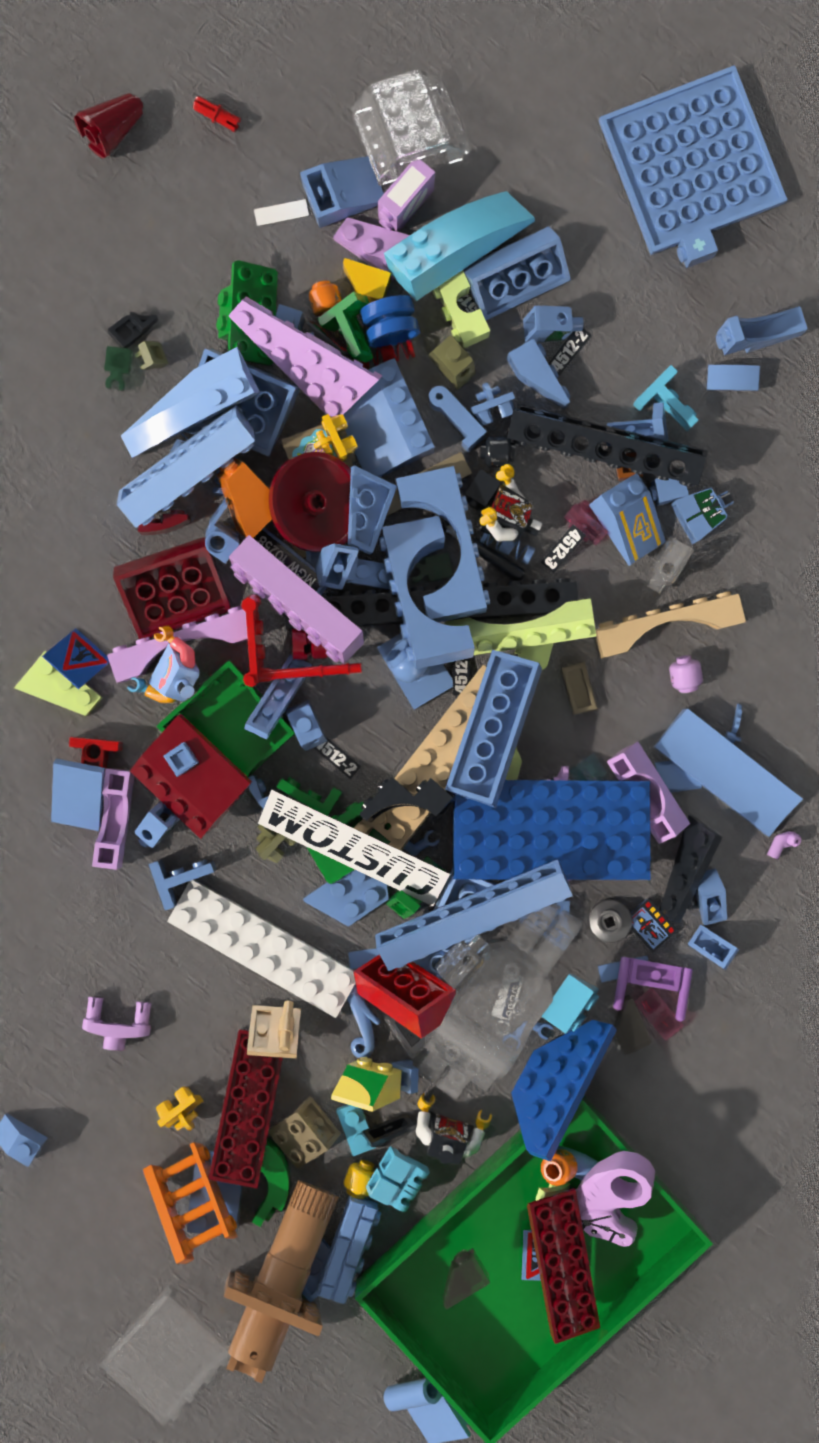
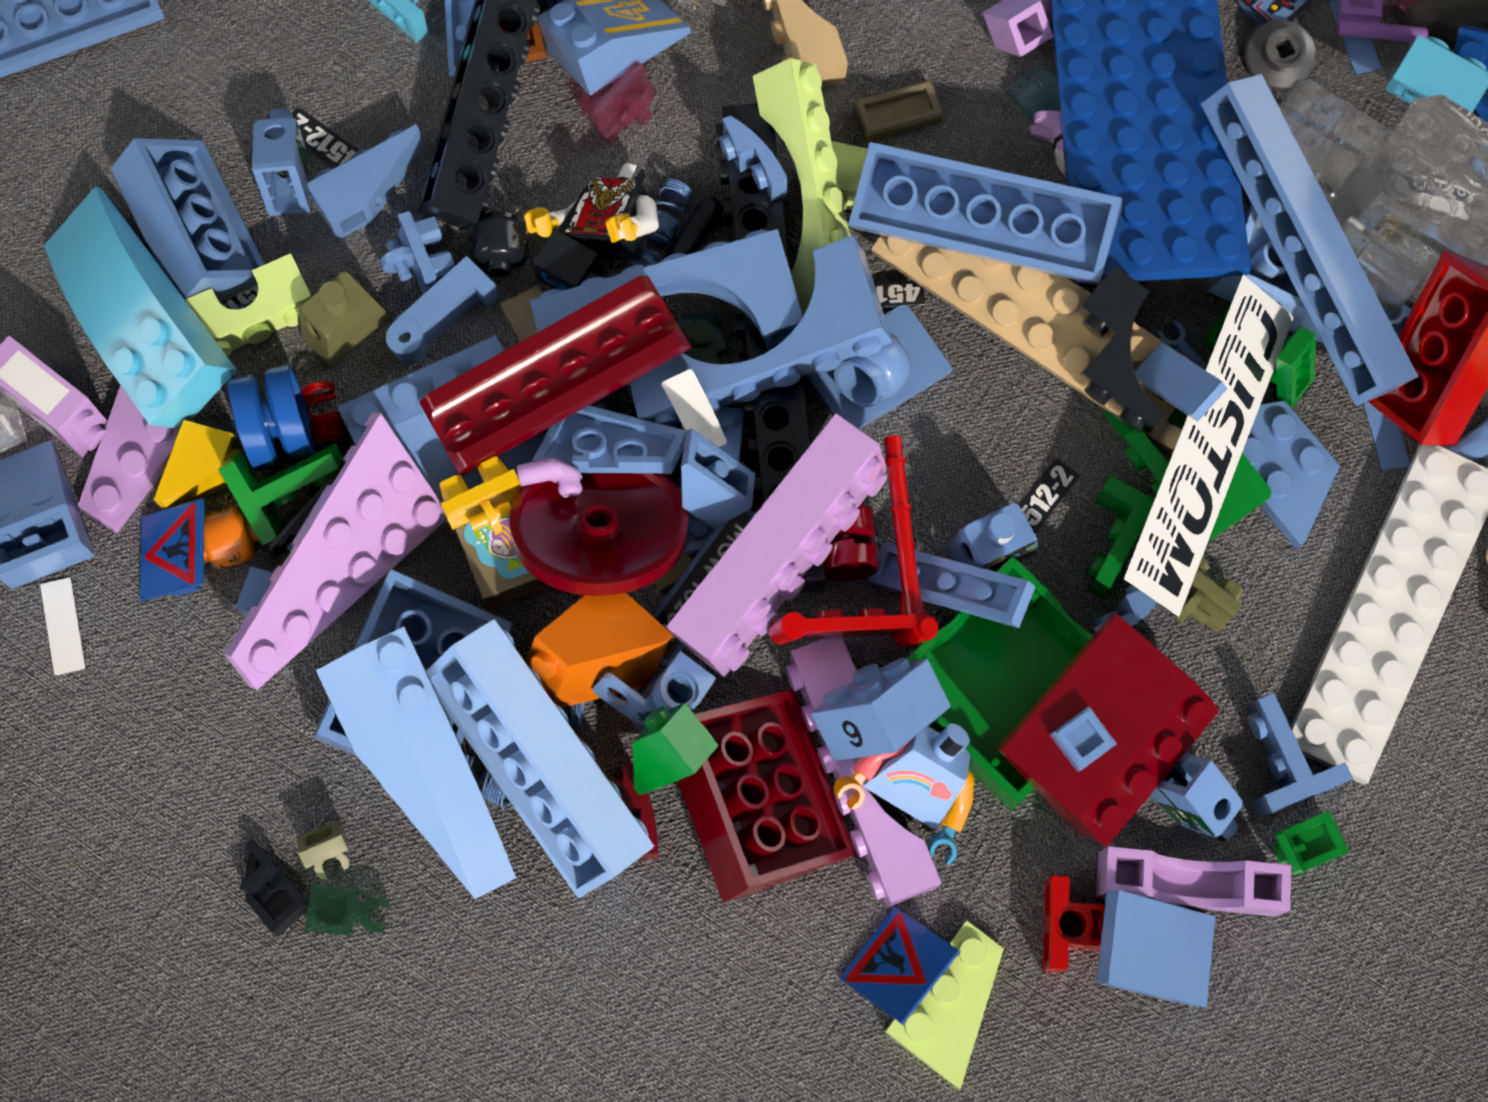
camera: 90 degrees left, 15 degrees down
(133, 885) = (1310, 843): none -> green bracket
(185, 537) = (669, 748): none -> green slope
(204, 652) = (880, 709): none -> medium blue brick
(259, 285) = (196, 667): green bracket -> none
(317, 269) = (172, 551): none -> blue piece
(347, 475) = (552, 470): none -> lavender arm
(381, 558) = (693, 406): none -> white sticker
(385, 831) = (1180, 381): none -> medium blue tile
(404, 479) = (553, 374): none -> dark red plate
(542, 592) = (751, 152): none -> medium blue slope
(563, 548) = (665, 134): black sticker -> none

